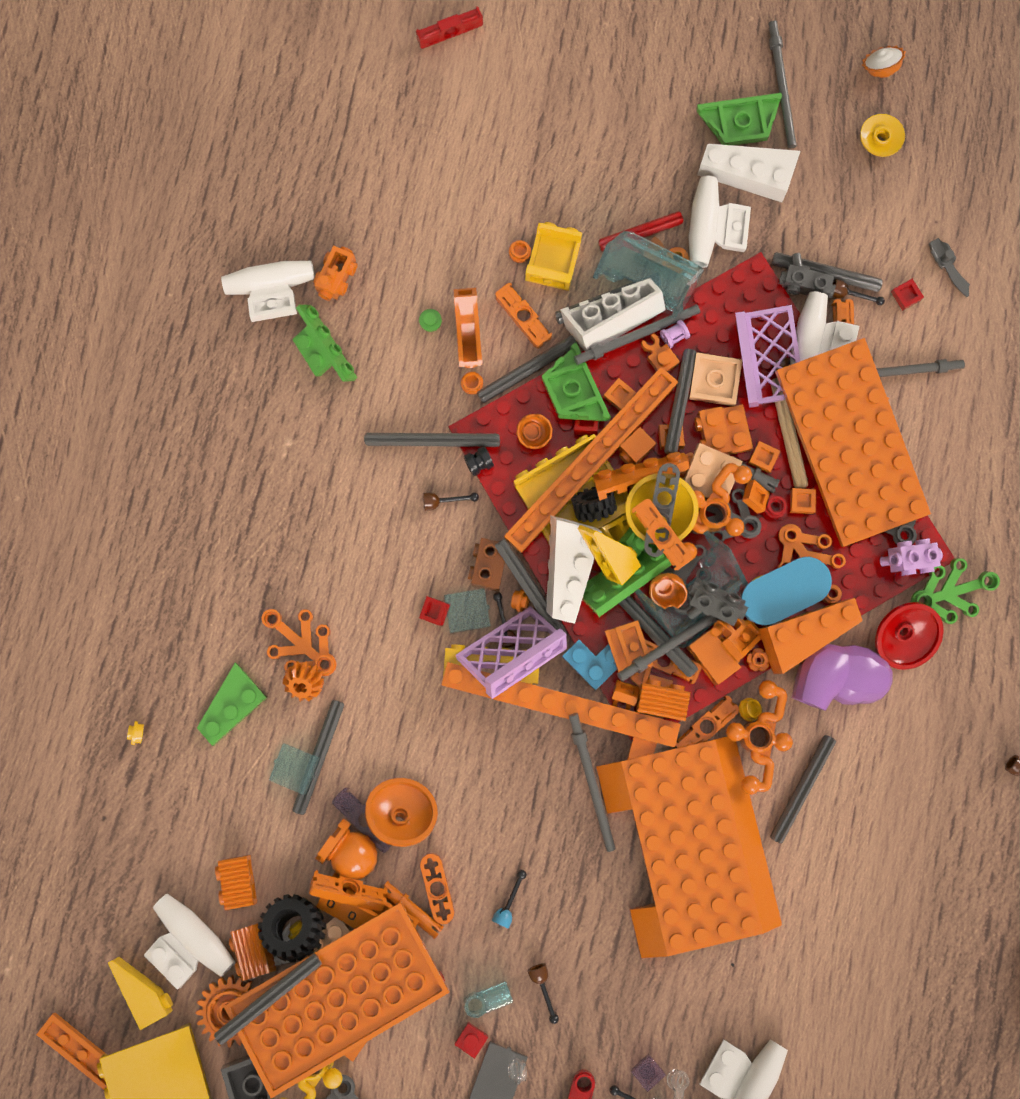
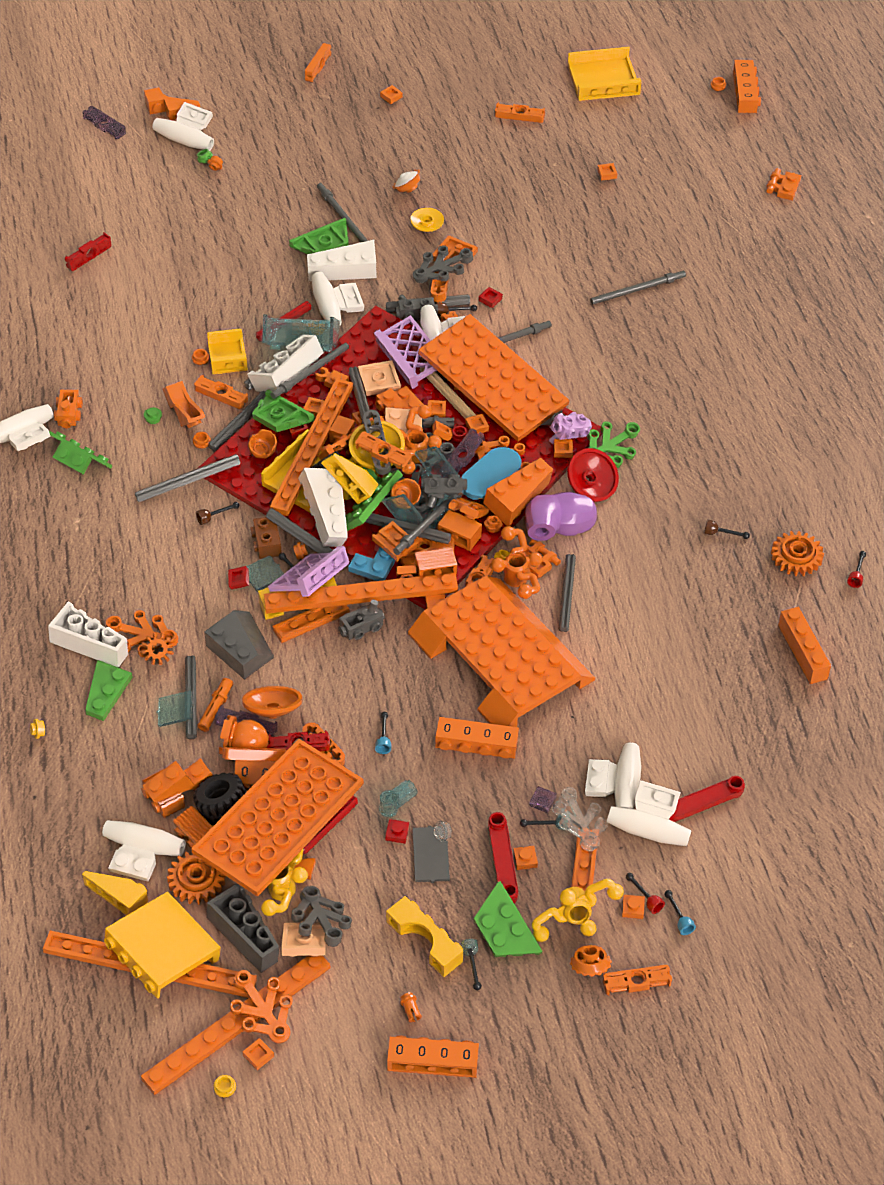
camera: 25 degrees left, 30 degrees down
(229, 624) = (87, 636): none -> white wedge
(255, 887) = (175, 780): none -> orange arch
(267, 999) = (224, 828): dark grey axle -> none
(347, 773) = (218, 698): none -> orange pin
(401, 706) = (239, 643): none -> dark grey wedge
(422, 888) = (318, 741): none -> red piece
(474, 705) = (308, 621): none -> orange tile
(478, 461) = (229, 475): black wheel -> none
(539, 975) = (428, 769): hinge -> none
(553, 735) = (361, 621): none -> dark grey brick
(580, 738) = (385, 604): dark grey bar -> none
(611, 957) = (476, 737): none -> orange brick
(675, 333) = (336, 362): lavender bush -> none
(779, 534) = (468, 444): none -> piece
(786, 723) = (548, 558): none -> orange plate
(853, 245) = (439, 289): none -> orange beam
(867, 223) = (424, 273): none -> dark grey plant
(890, 581) = (563, 448): none -> orange plate
(894, 193) = (454, 247): none -> orange plate
(945, 258) = (507, 272): dark grey piece -> none

